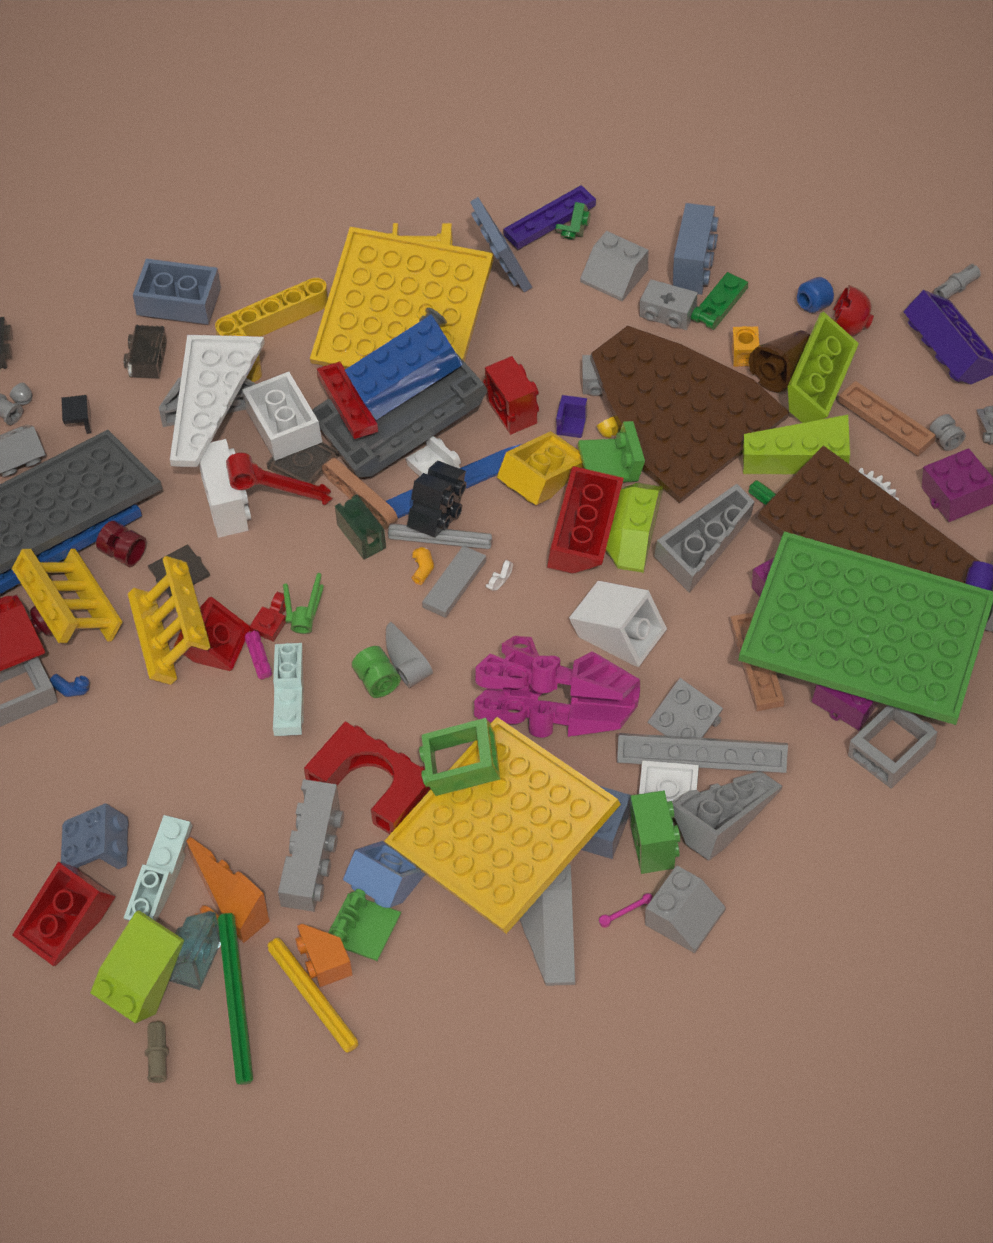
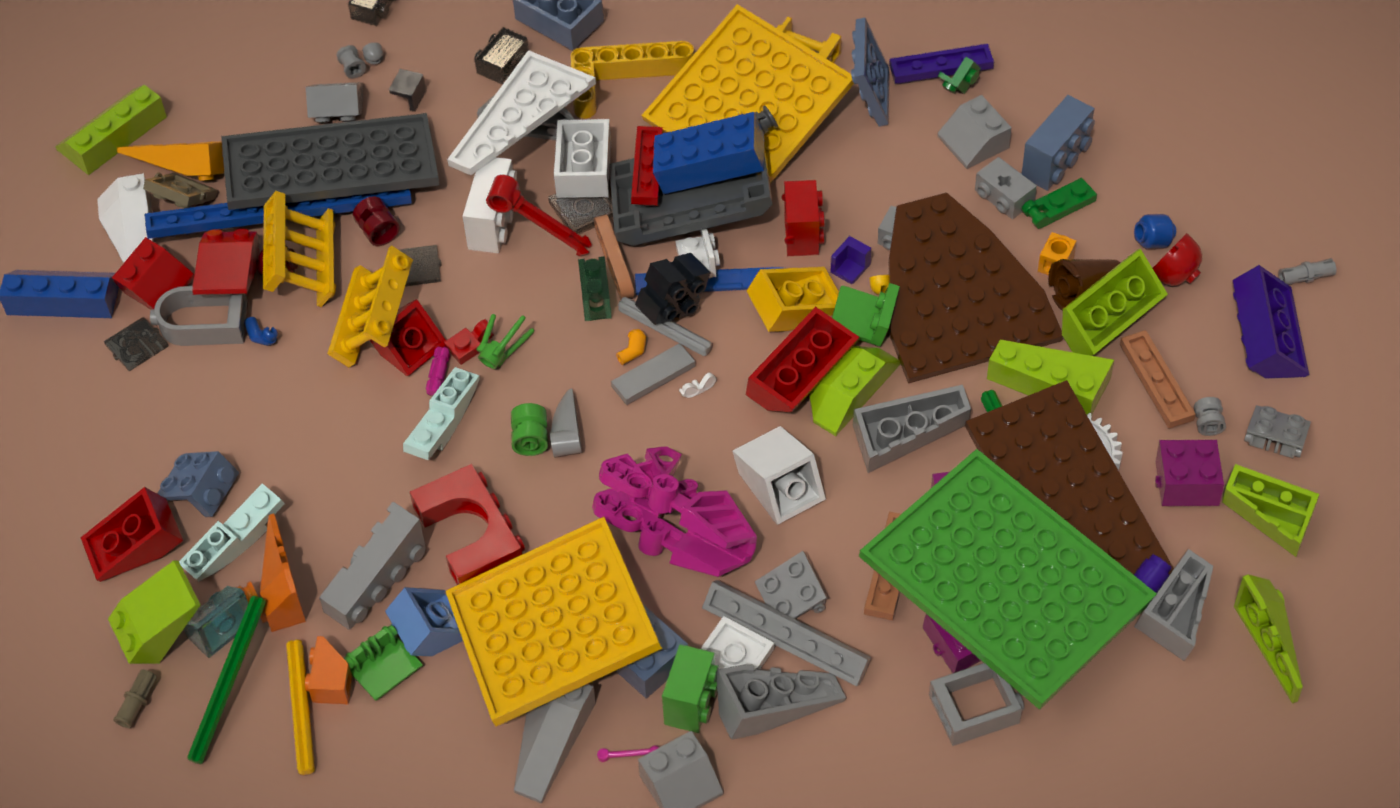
camera: 25 degrees right, 0 degrees up
(466, 776) = (569, 551): bright green window -> none

